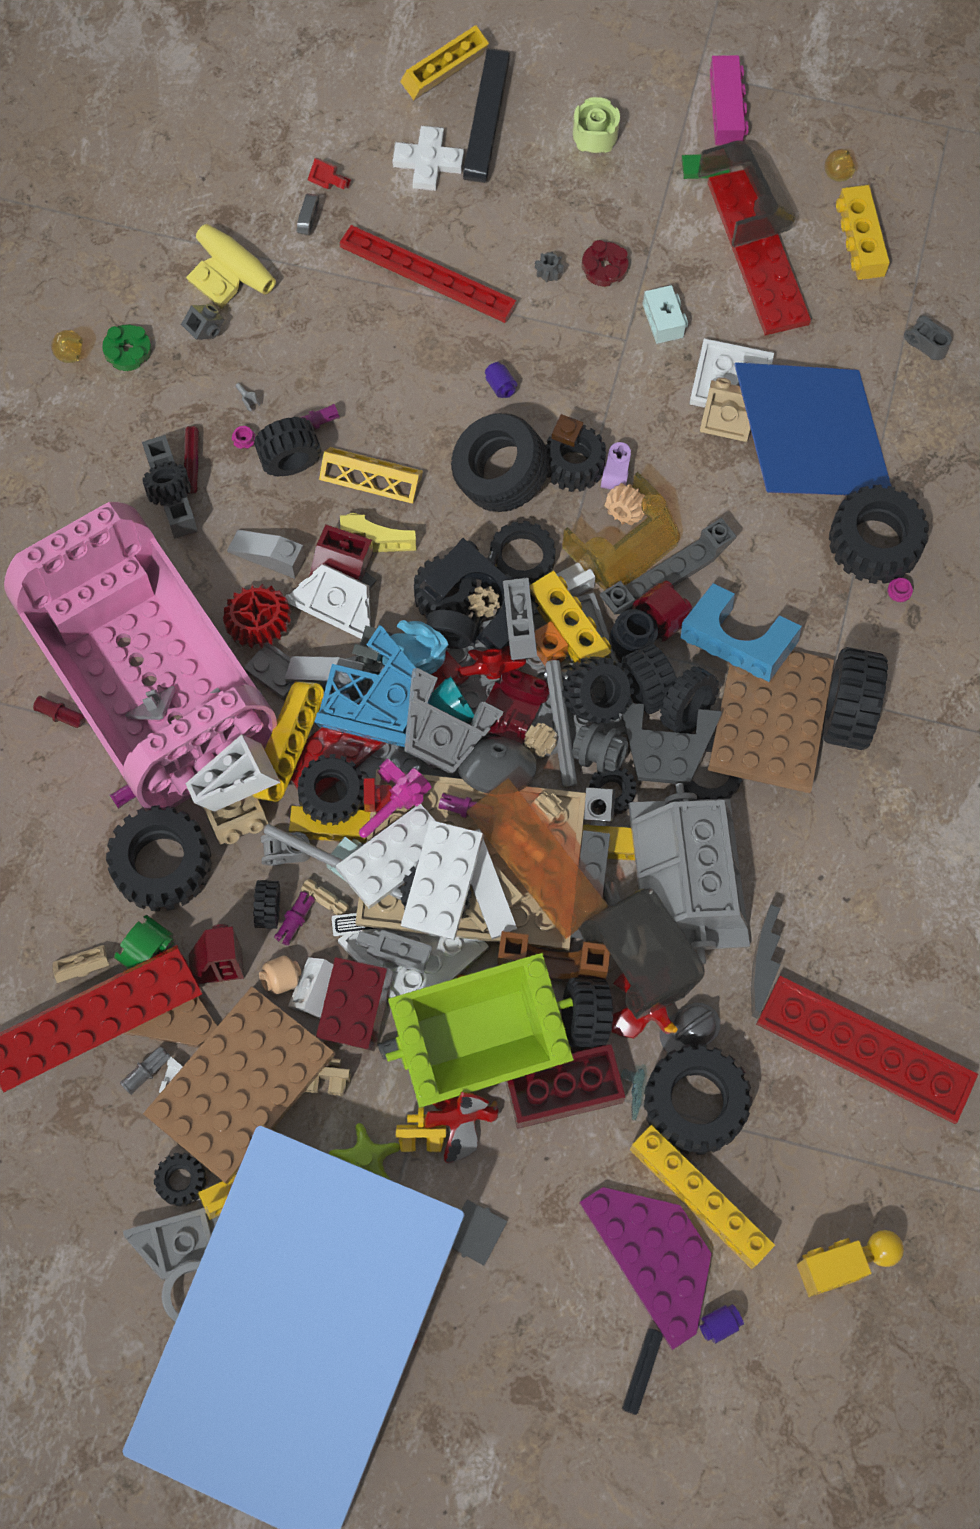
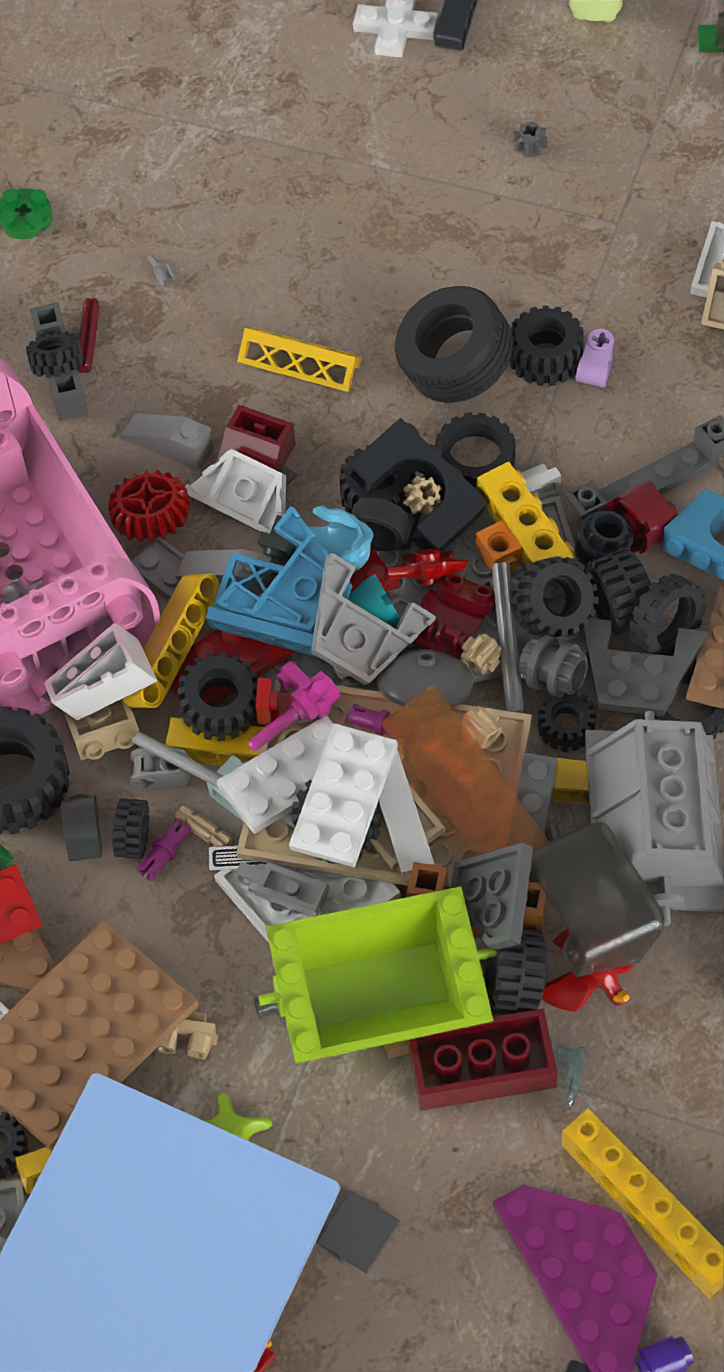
camera: 10 degrees right, 10 degrees down
(203, 321) = (114, 186): dark grey brick -> none
(217, 956) = (65, 882): dark red wedge -> none
(226, 901) = (81, 827): none -> pearl dark grey brick
(230, 264) = (152, 127): light yellow plate -> none
(239, 433) = (148, 308): dark pink plate -> none
(280, 975) = (140, 912): light nougat head -> none
(287, 446) = (201, 320): black tyre -> none
(308, 214) = (248, 77): dark grey beam -> none
(312, 987) = (185, 931): white panel -> none
(322, 416) = (237, 296): magenta pin -> none
(324, 175) = (273, 36): red plate -> none
(354, 1004) = (227, 948): dark red brick -> none
(383, 538) = (308, 426): light yellow slope -> none
(409, 1132) = (314, 1109): yellow hips -> none
(428, 273) = (386, 144): red plate -> none
(461, 1115) = (350, 1086): animal -> none
(500, 380) = (463, 259): dark purple brick -> none
(519, 619) = (463, 513): light grey slope -> none
(567, 430) = (537, 310): reddish brown plate -> none
(569, 955) = (496, 892): none -> dark grey plate
(608, 797) = (543, 718): light grey brick -> none
(609, 252) = (601, 126): dark red plate -> none
(625, 504) = (605, 397): light nougat gear -> none
(636, 550) = (613, 449): clear yellow windscreen -> none
(664, 314) = (666, 194): light aqua brick -> none
(695, 1025) = (652, 1005): flat silver piece -> none
(716, 1068) = (659, 1042): black tyre -> none

